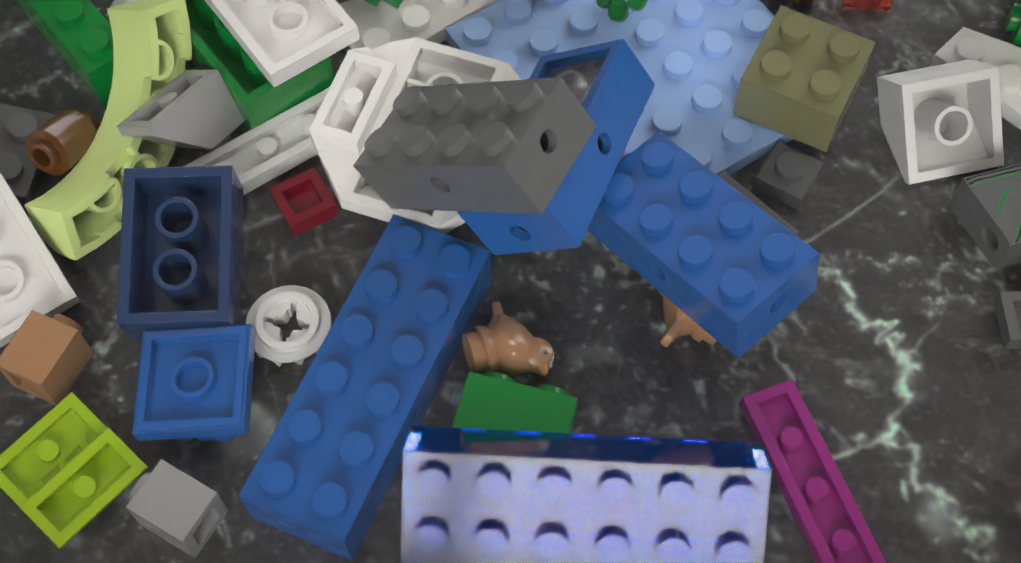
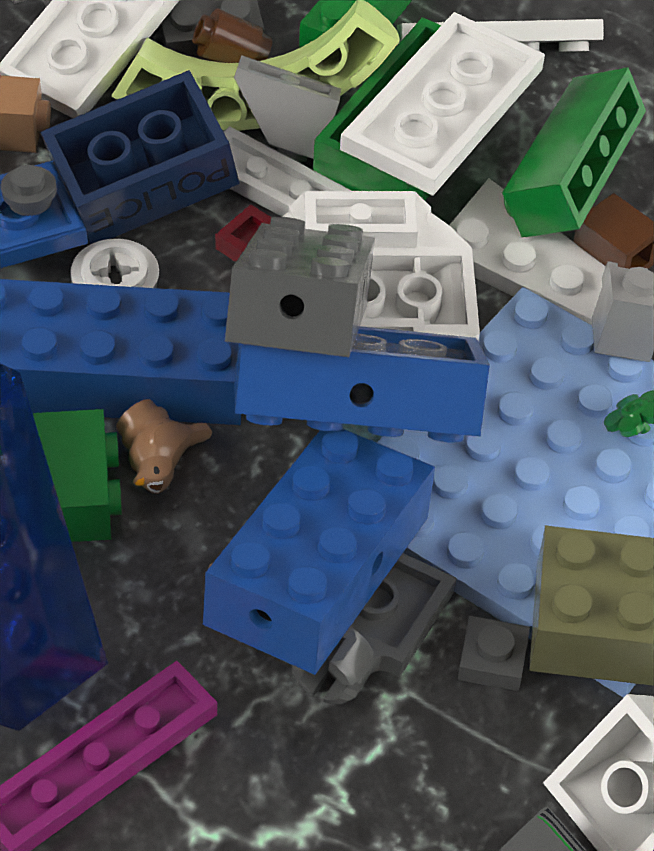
camera: 65 degrees right, 10 degrees down
(184, 355) = (29, 189): none -> dark grey plate

